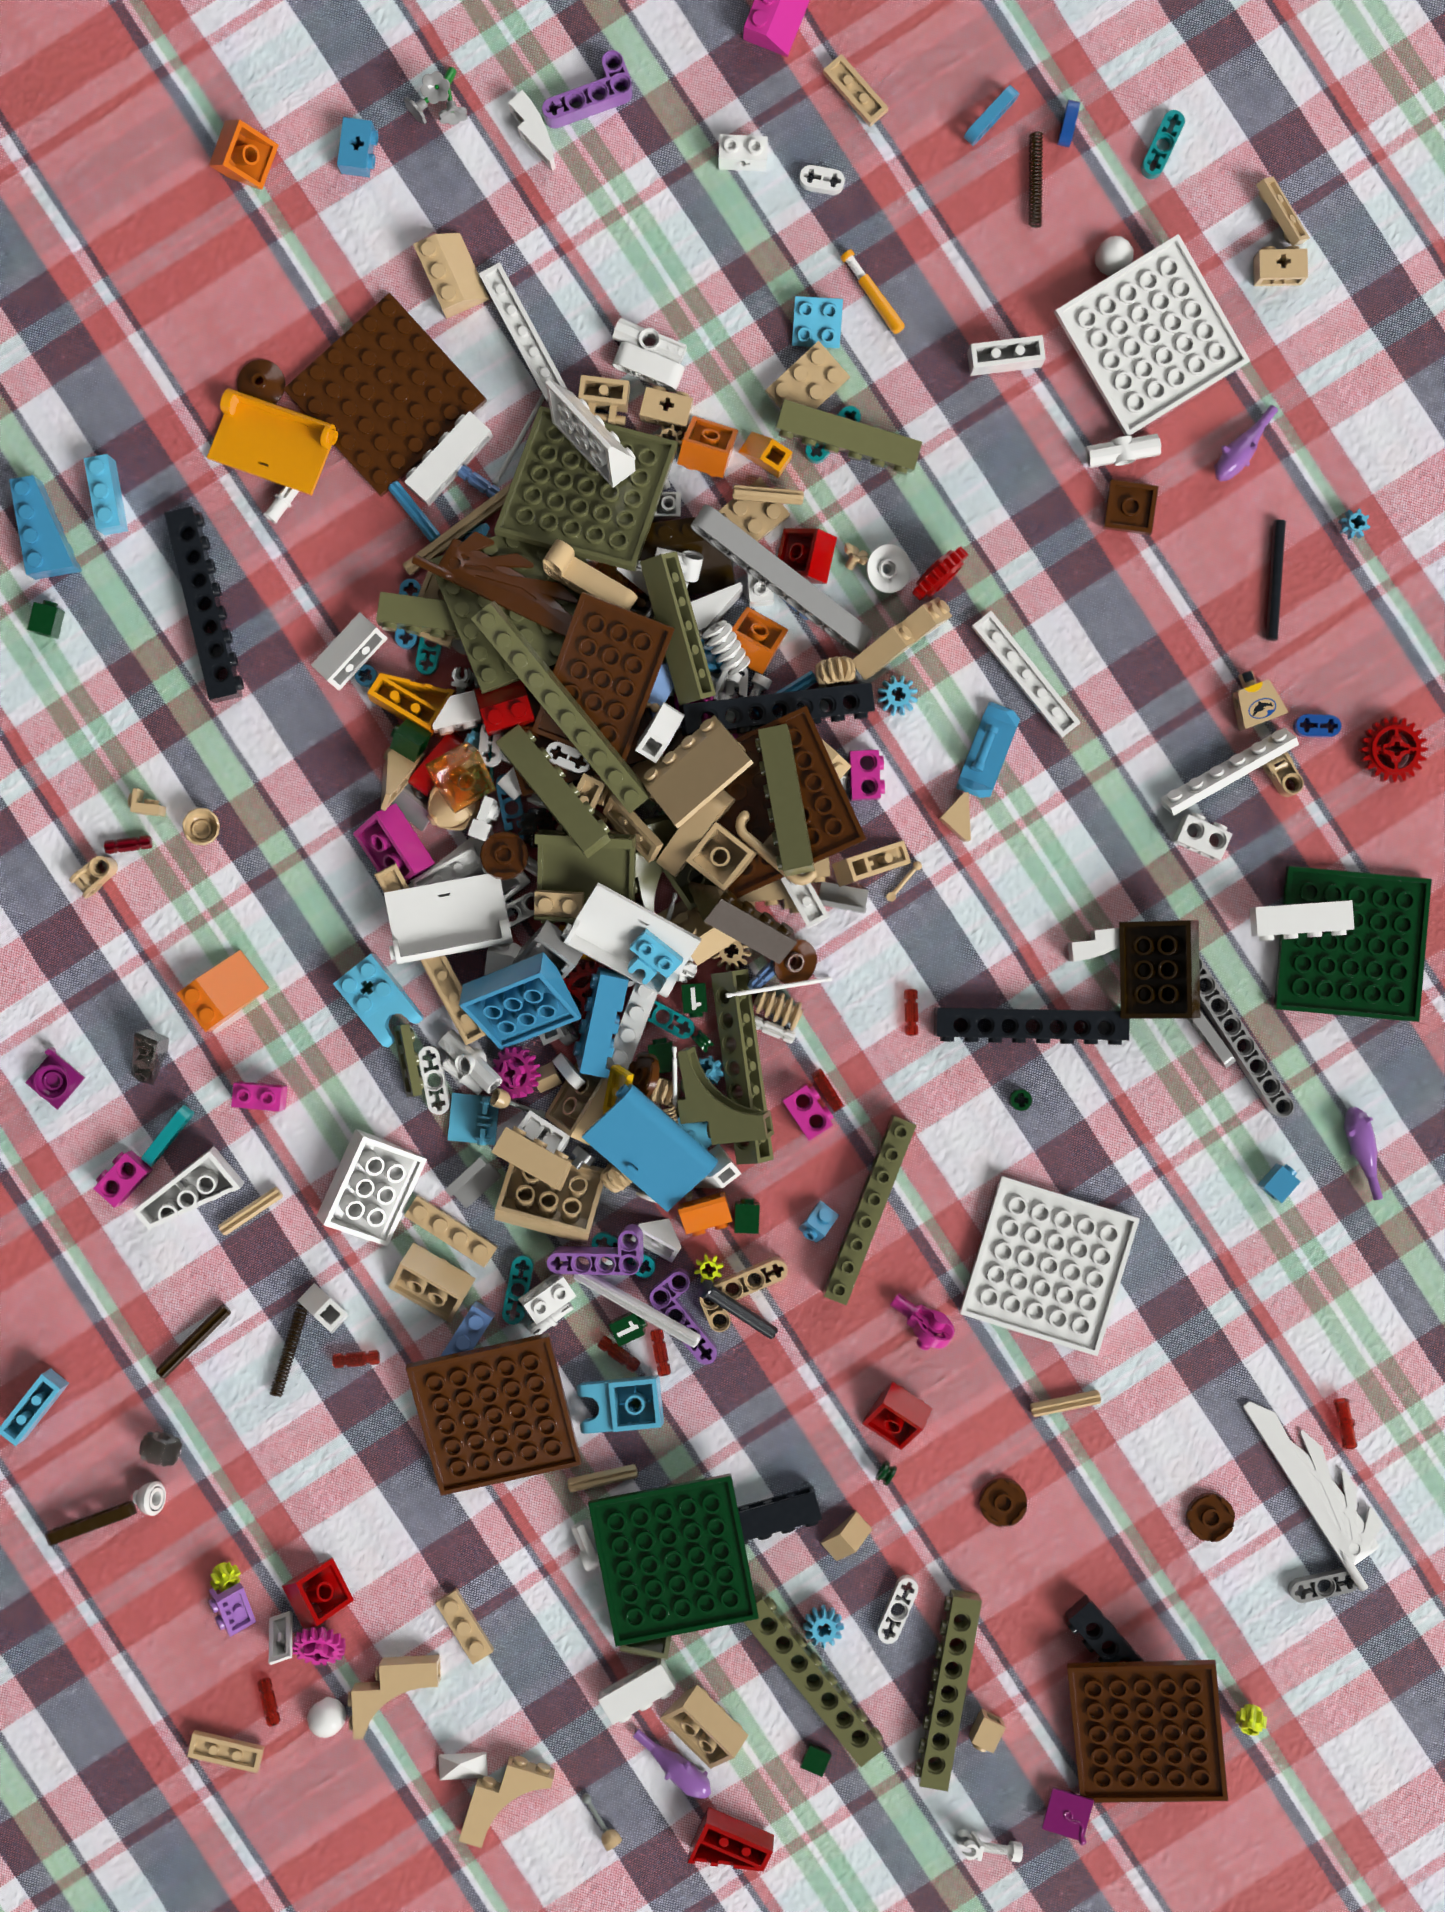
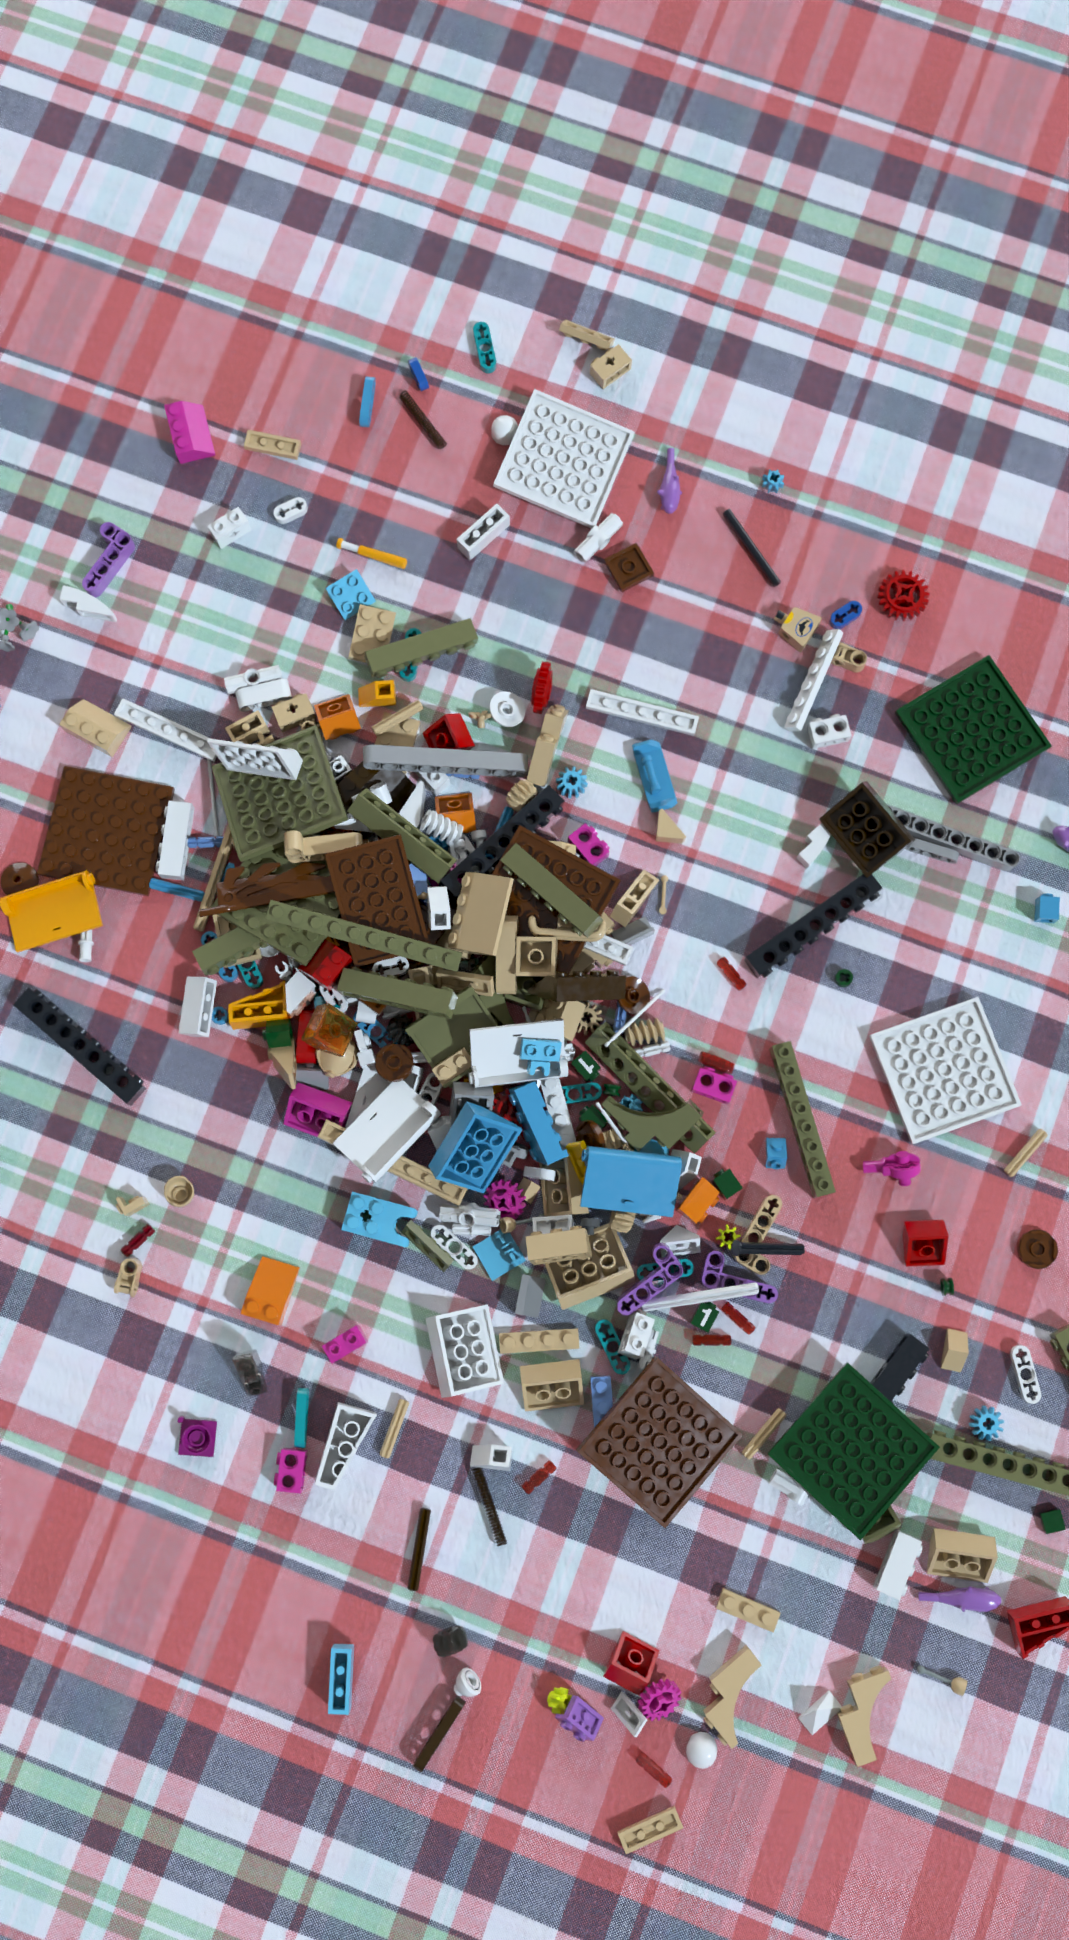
camera: 35 degrees left, 10 degrees down
(455, 868) = (369, 1092): white tile -> none
(615, 1404) = (735, 1375): medium azure brick -> none
(1302, 918) = (928, 735): white brick -> none

